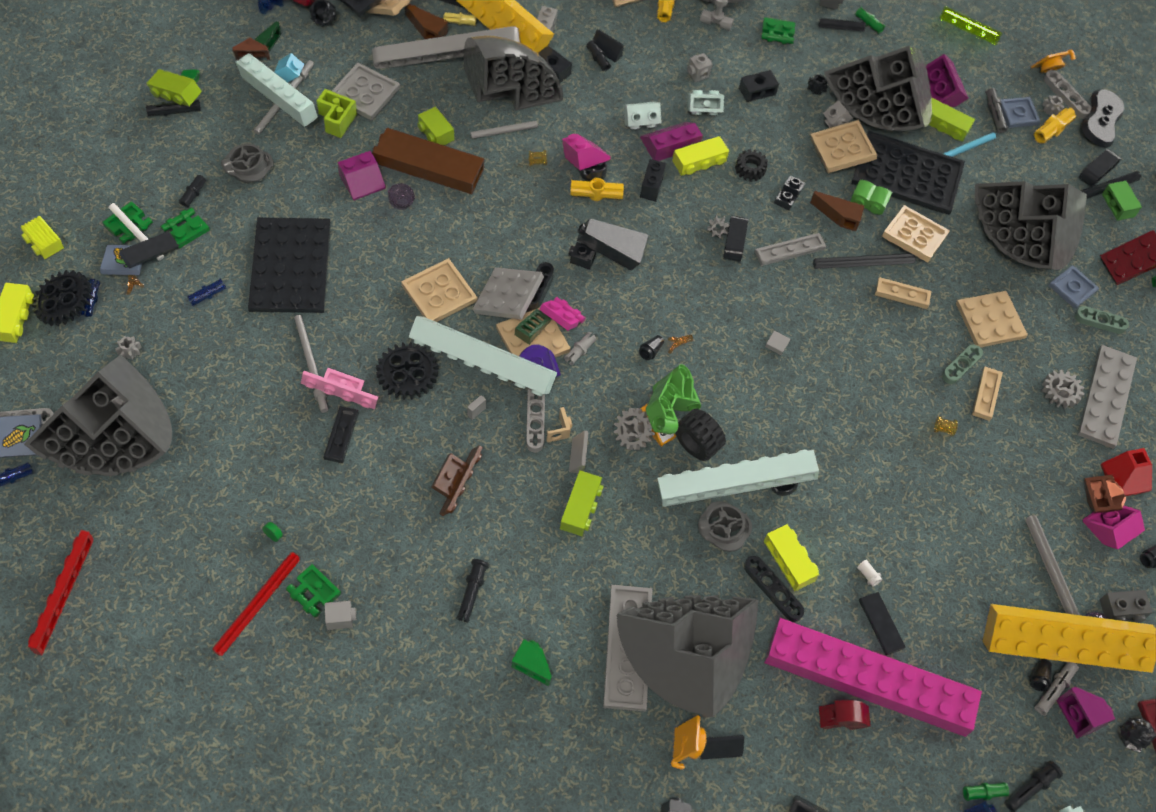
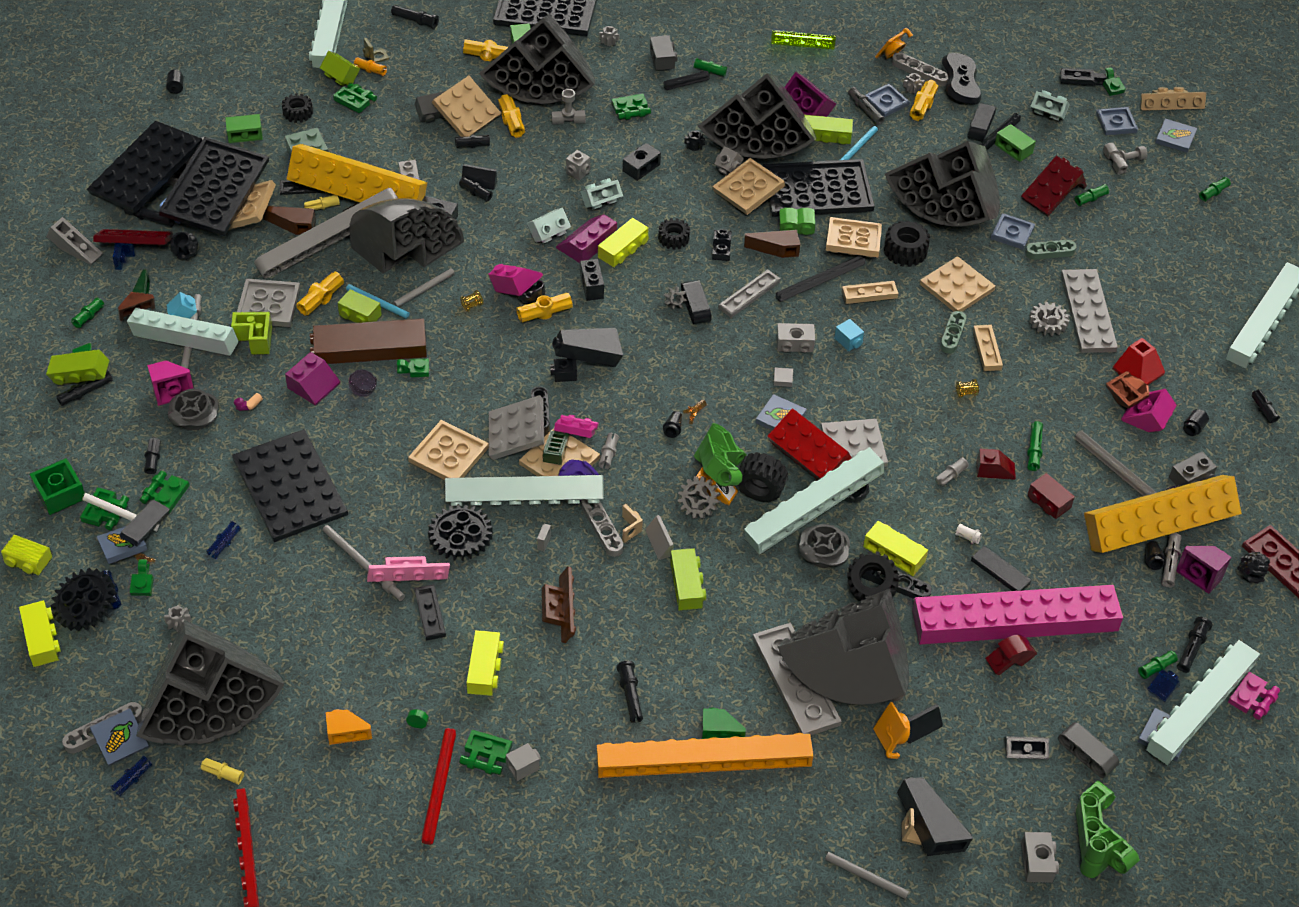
camera: 20 degrees left, 10 degrees down
(85, 505) = (222, 771): none -> light yellow axle
(98, 187) = (57, 486): none -> green slope
(120, 301) = (142, 582): none -> green plate
(206, 511) = (346, 727): none -> light orange slope
(213, 42) = (87, 312): none -> green pin
(237, 129) = (168, 380): none -> dark pink slope
(297, 177) = (242, 405): none -> arm
(358, 504) = (484, 663): none -> neon yellow brick
(412, 100) = (320, 293): none -> yellow piece
(456, 201) = (416, 367): none -> green plate
(458, 126) = (390, 307): none -> medium azure bar
(503, 684) = (704, 755): none -> light orange brick
(619, 10) = (472, 141): none -> black pin
(743, 564) = (867, 563): none -> black tyre
(755, 380) = (776, 410): none -> tile
(761, 421) = (807, 445): none -> red brick
(802, 304) = (795, 337): none -> light grey brick
(809, 431) = (857, 436): none -> light grey plate
(860, 327) = (849, 335): none -> medium azure brick
(887, 503) = (952, 471): none -> light grey axle
(932, 515) = (994, 464): none -> dark red slope
(957, 268) = (906, 243): none -> black tyre
(969, 569) = (1050, 496): none -> brick
(978, 517) = (1035, 452): none -> green pin

